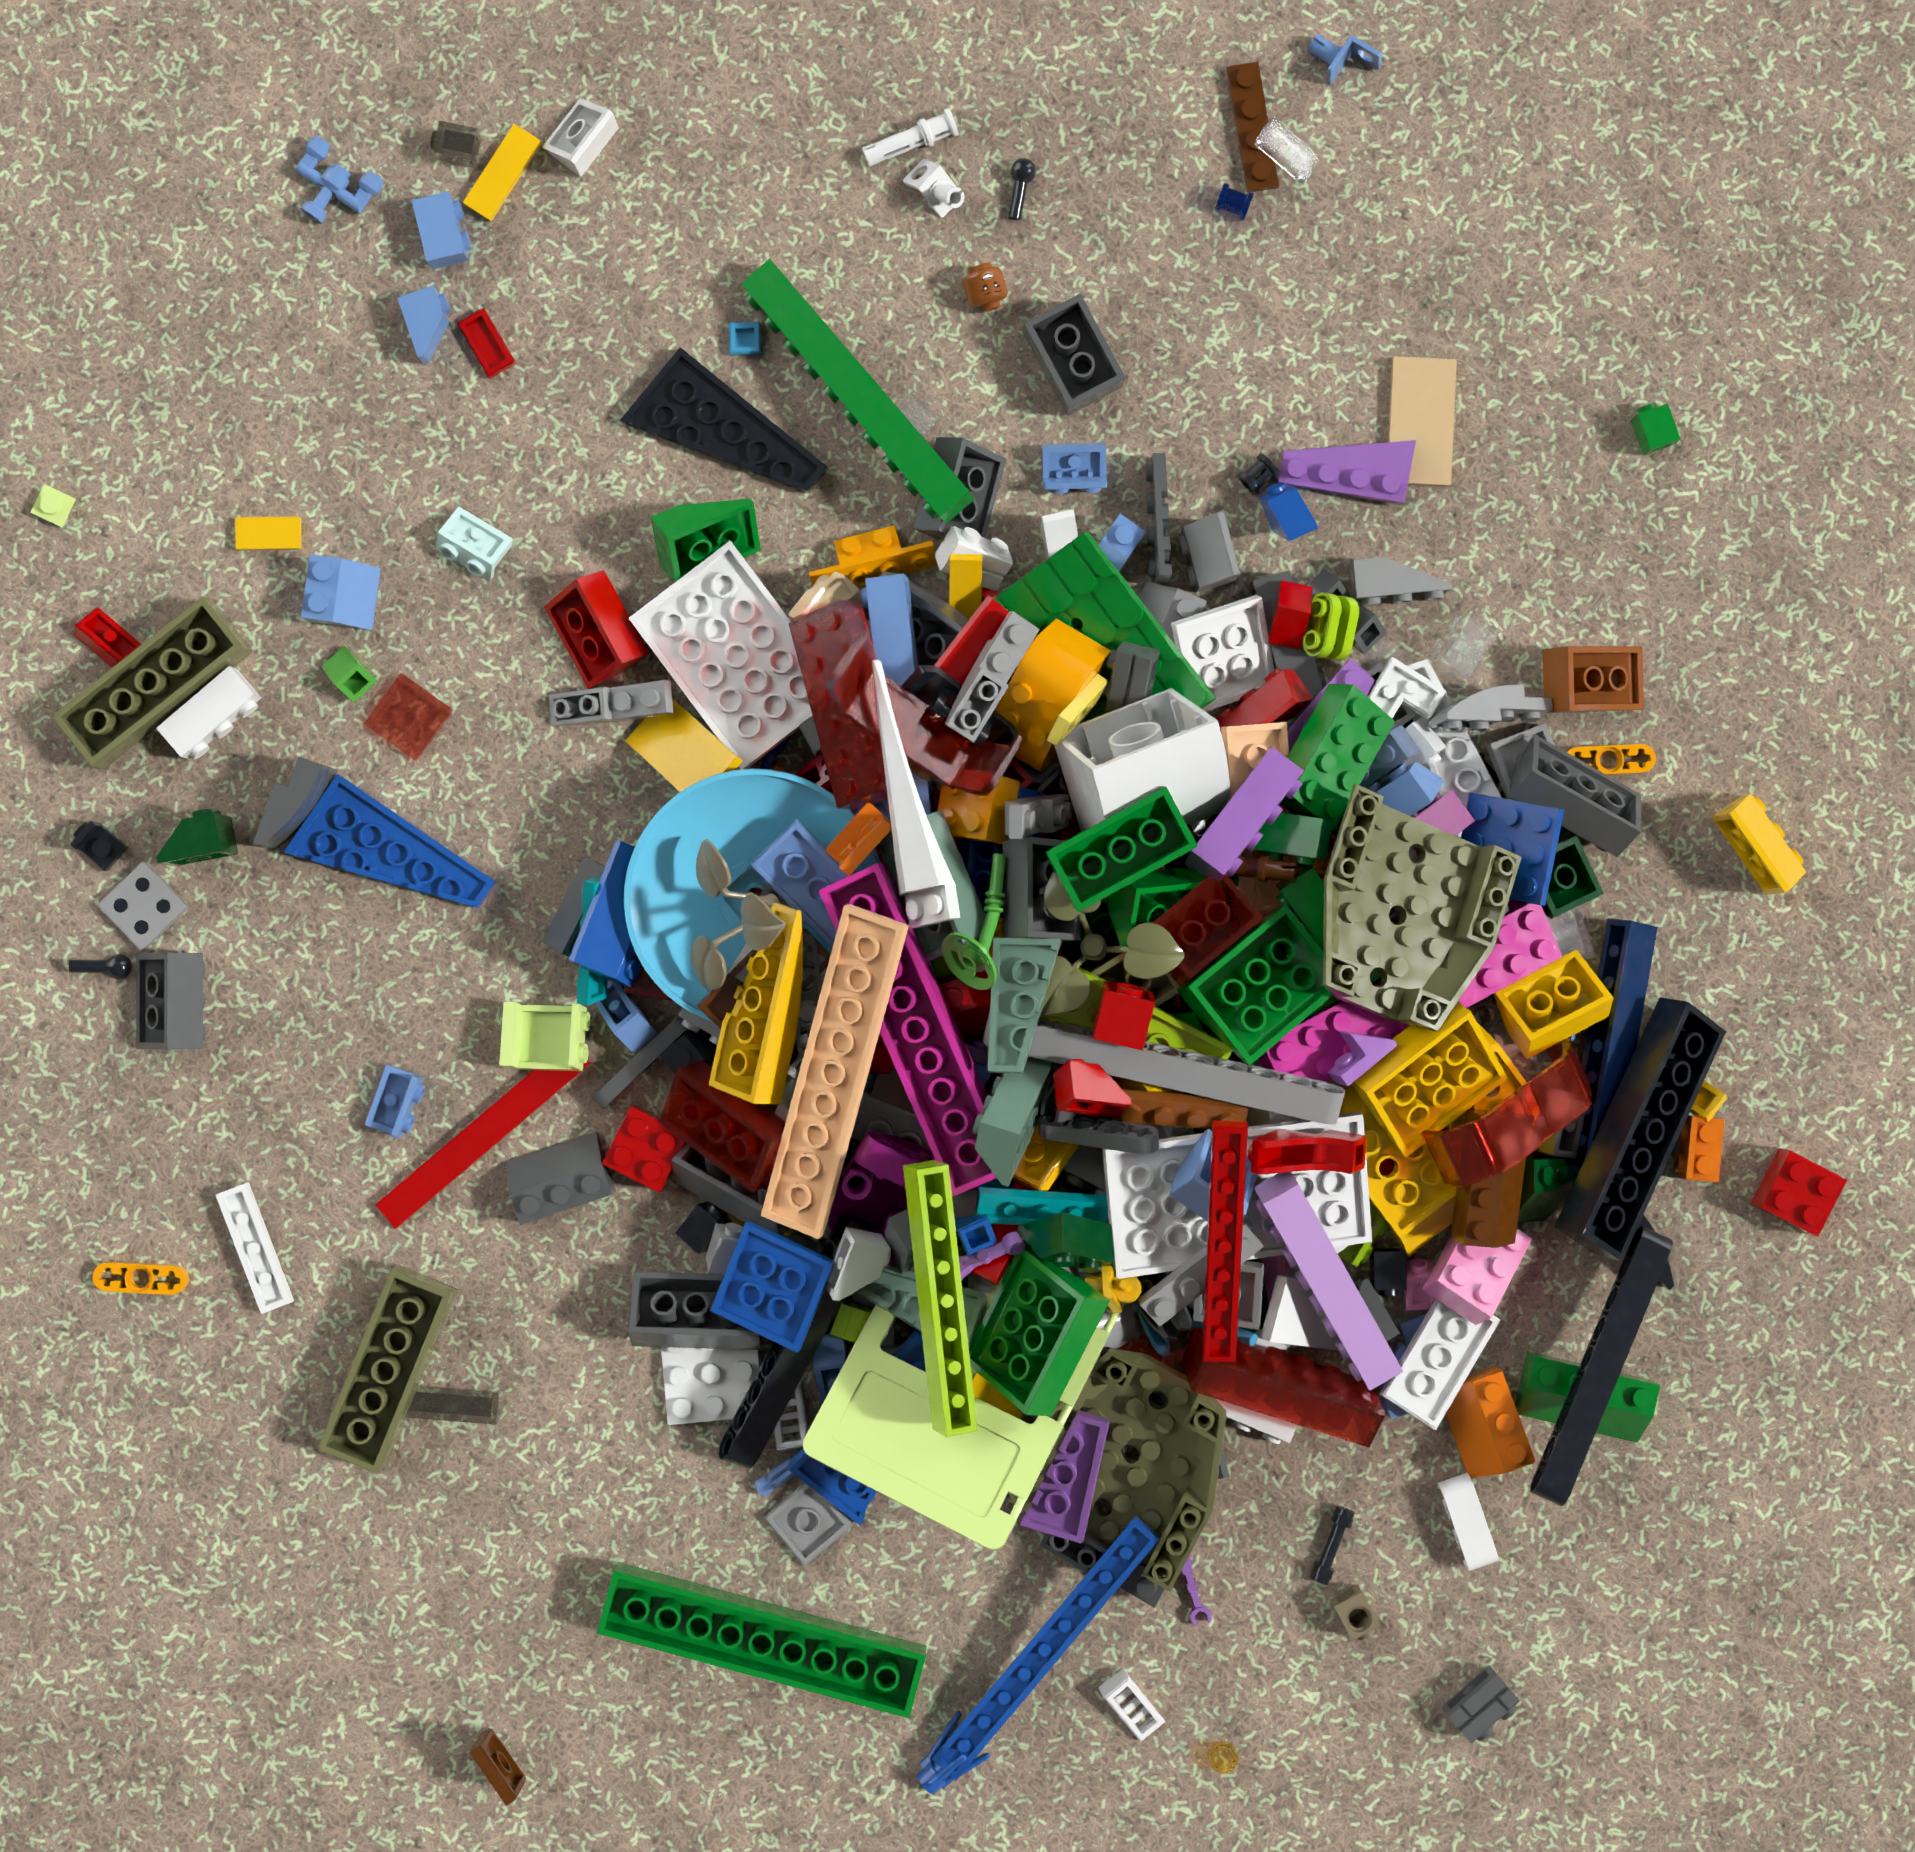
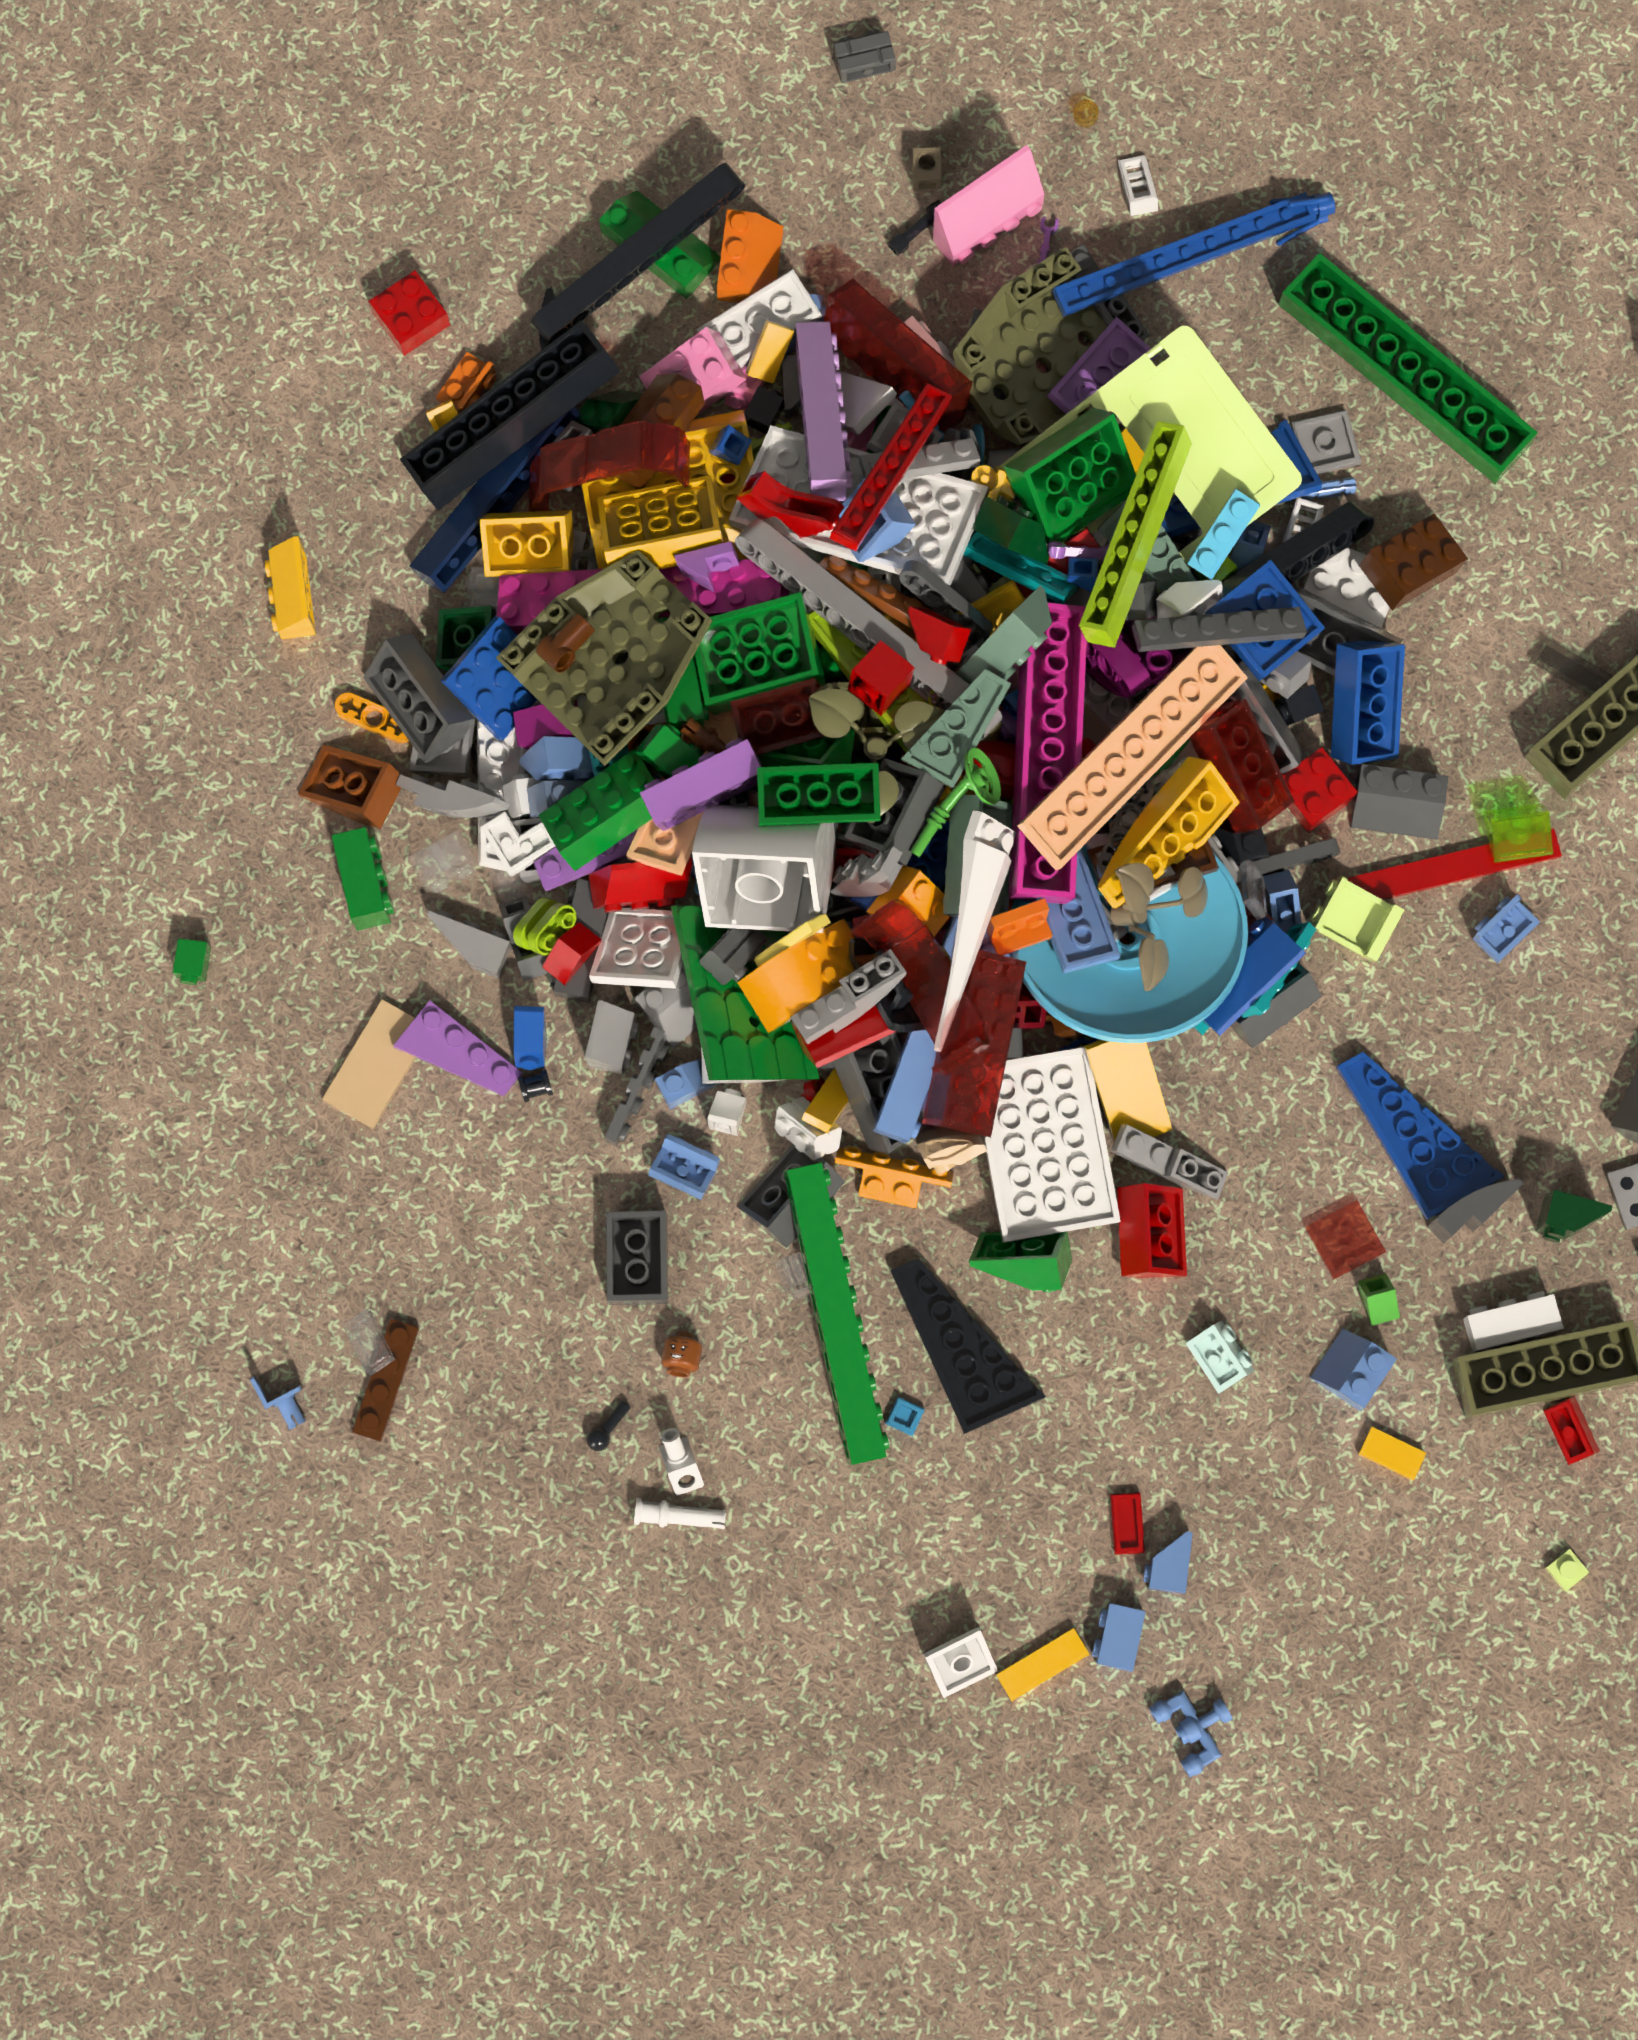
camera: 150 degrees left, 10 degrees down
(427, 1207) = (1519, 832): none -> clear neon green slope
(456, 144) = (1071, 1706): clear smoke brick -> none
(635, 1260) = (1367, 701): none -> blue slope
(655, 1007) = (1253, 889): none -> clear tile
(659, 1433) = (1413, 561): none -> reddish brown brick
(811, 1246) = (1218, 629): none -> dark grey plate
(853, 1357) = (1223, 533): none -> medium azure arch
(1234, 201) = (435, 1322): clear blue bush -> none
(1269, 1597) = (988, 207): none -> bright pink slope
(1402, 1201) = (730, 445): none -> blue slope
(1414, 1329) = (769, 351): none -> yellow tile
(1462, 893) = (560, 648): none -> reddish brown piece
(1469, 1521) = (802, 193): white beam -> none
(1533, 587) = (363, 878): none -> green brick

